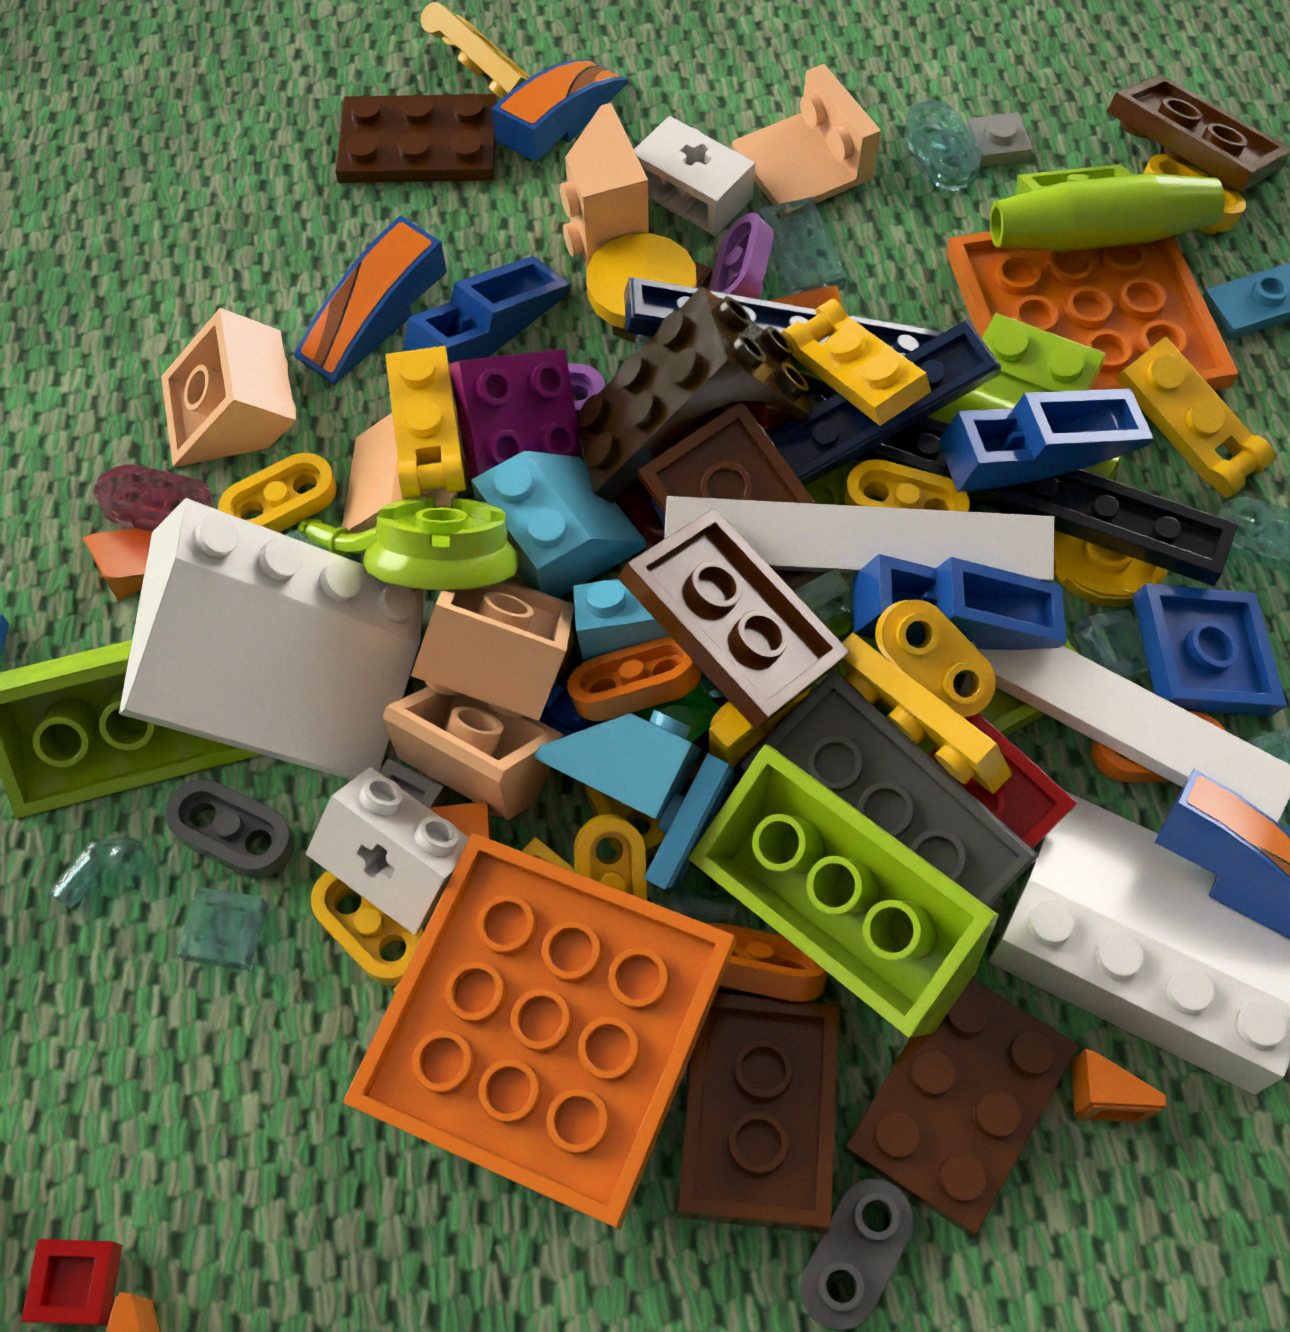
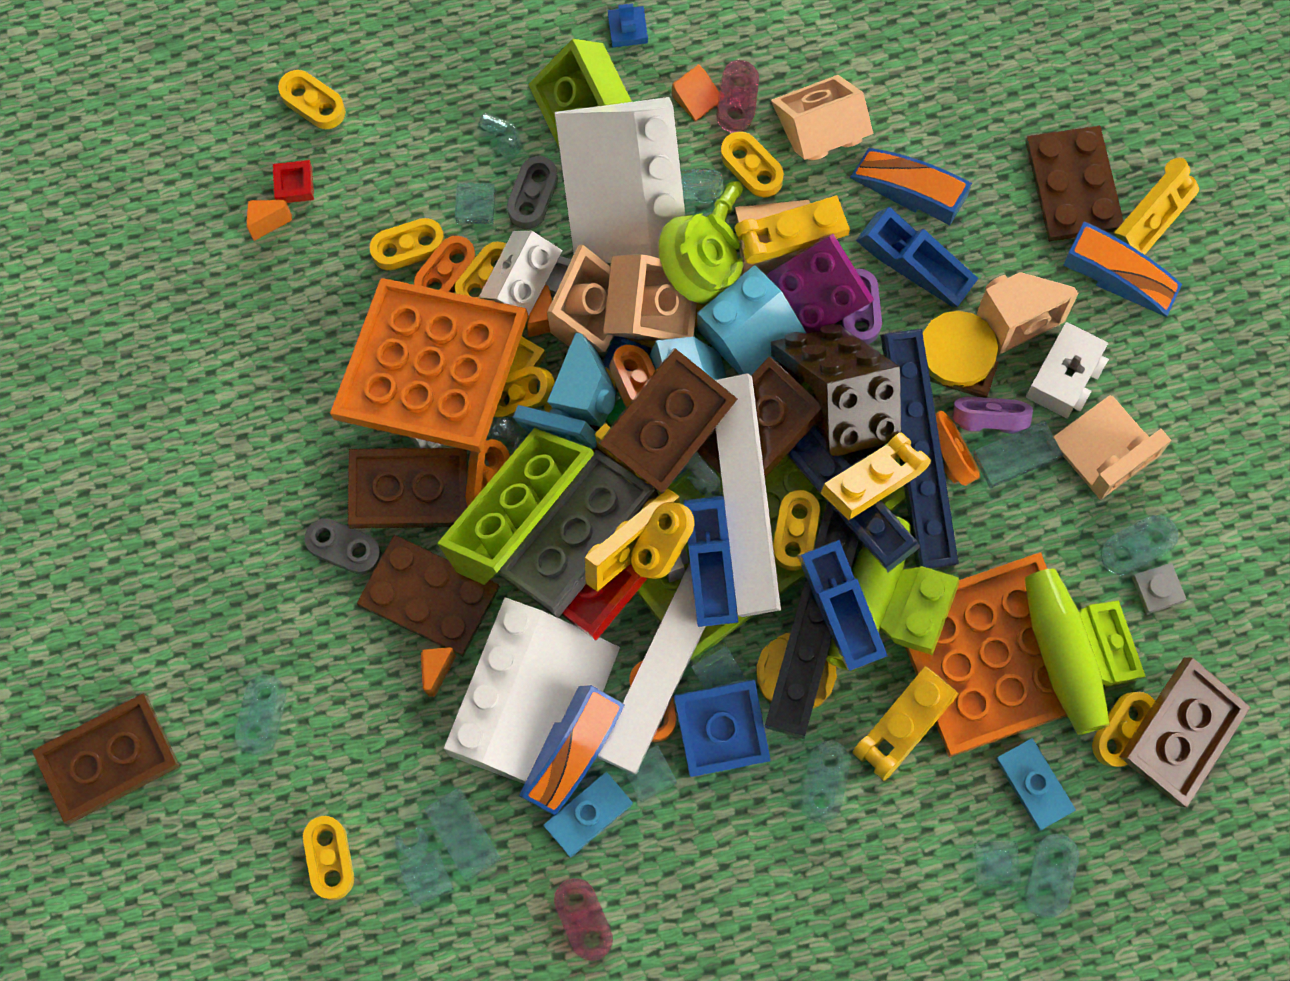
camera: 85 degrees right, 10 degrees up
(271, 1064) = (406, 241): none -> yellow plate
(339, 1001) = (440, 267): none -> orange plate

